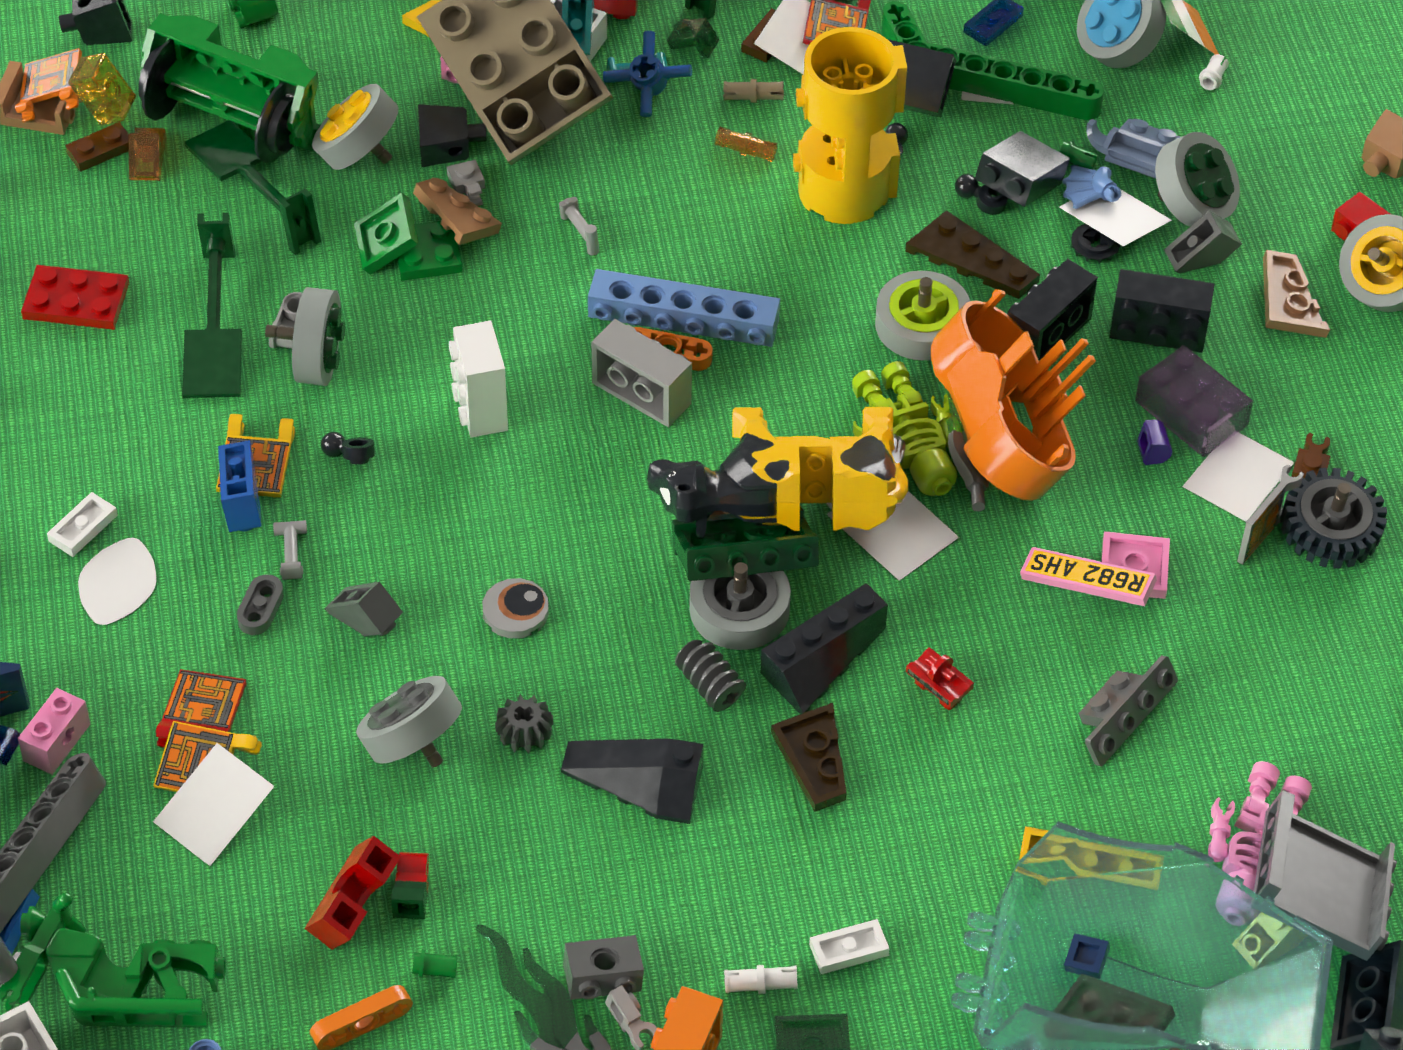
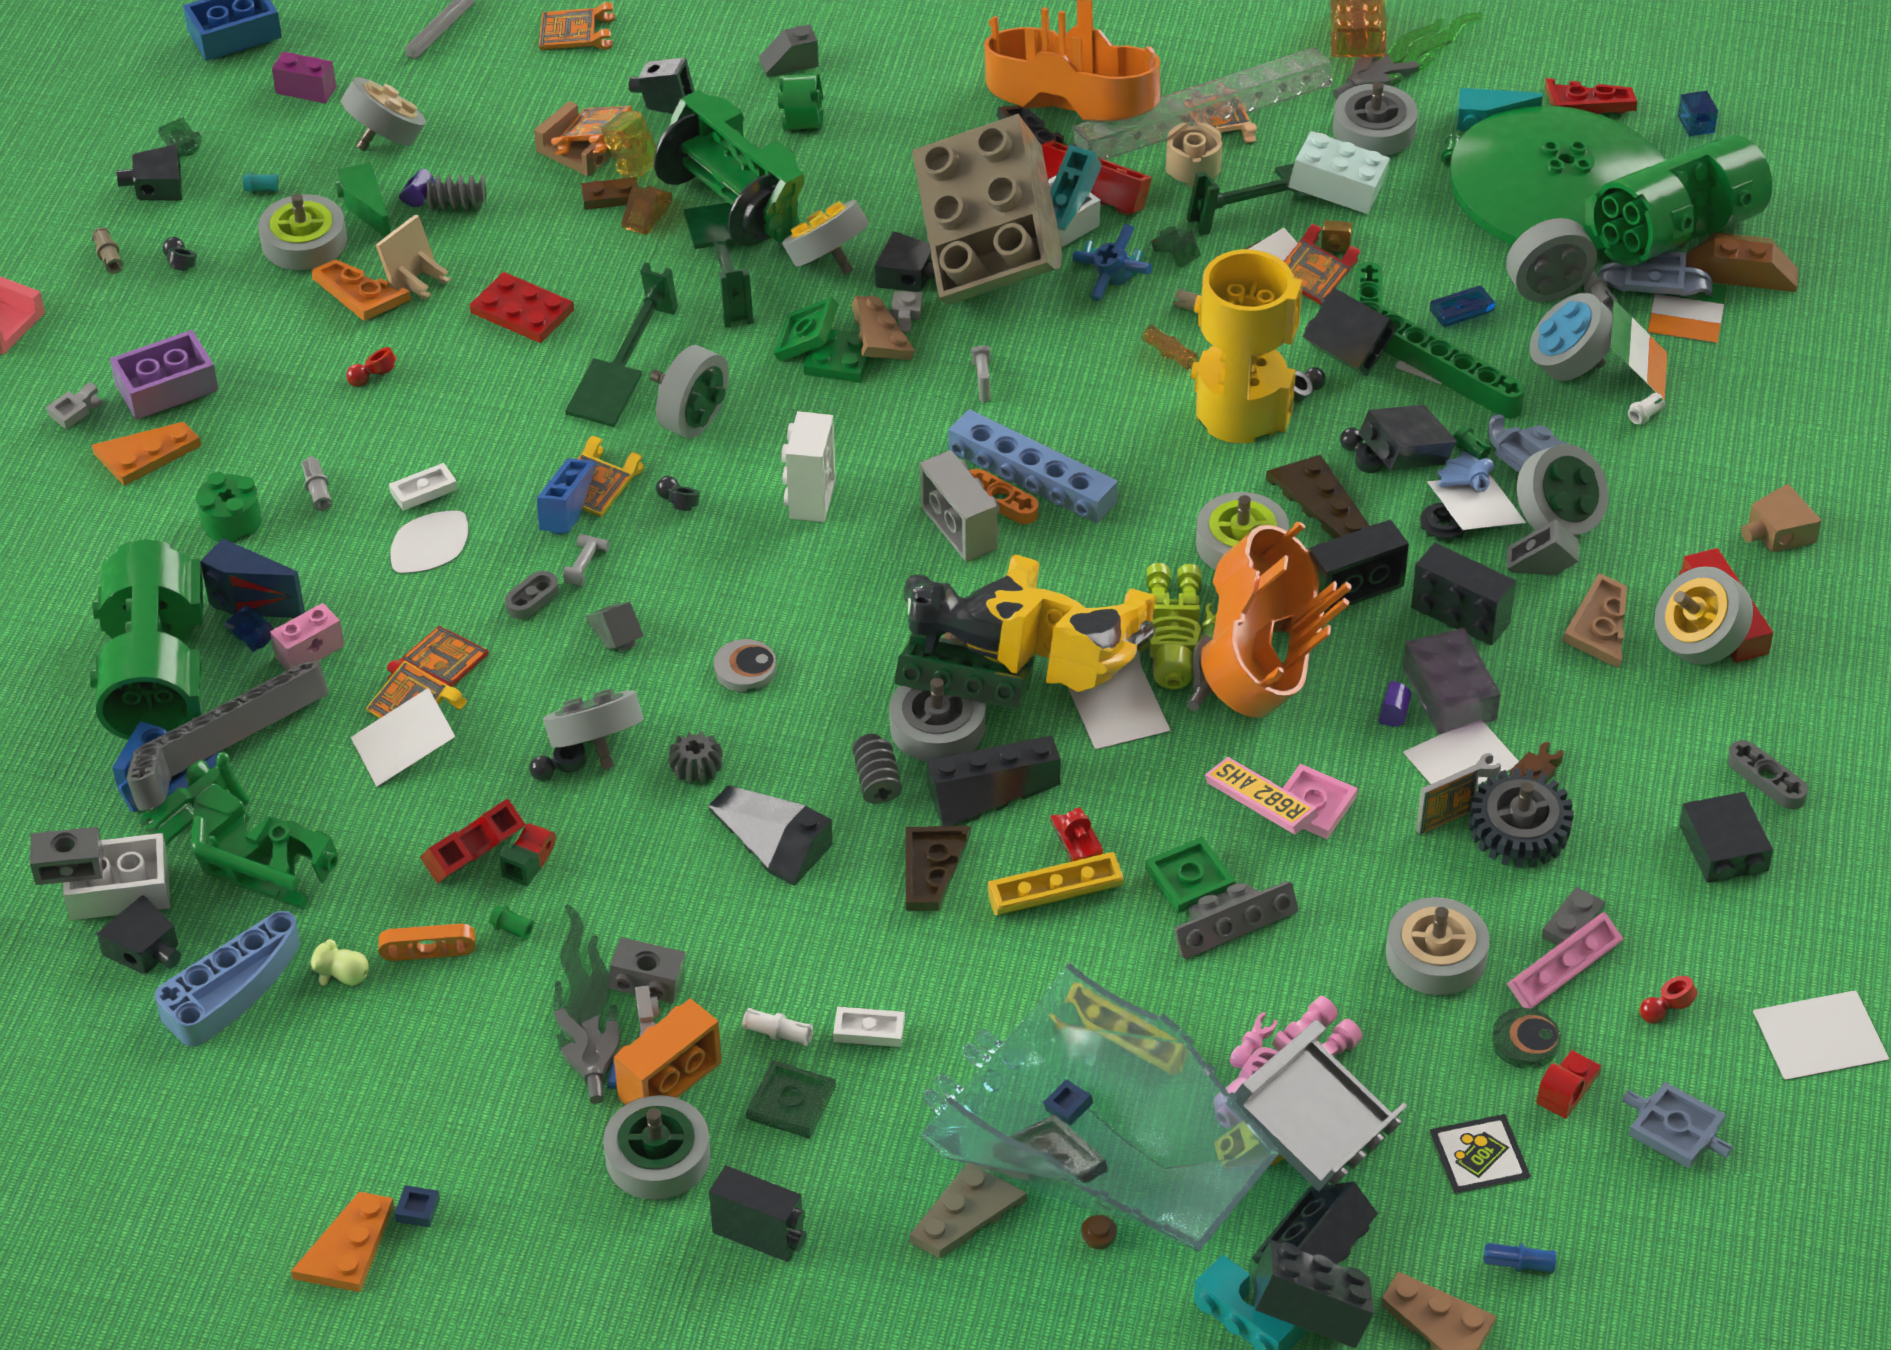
camera: 25 degrees right, 5 degrees down
(374, 786) = (565, 758): none -> black plate
(943, 734) = (1054, 883): none -> yellow brick
(1063, 679) = (1189, 873): none -> green plate
(1329, 672) = (1437, 946): none -> wheel

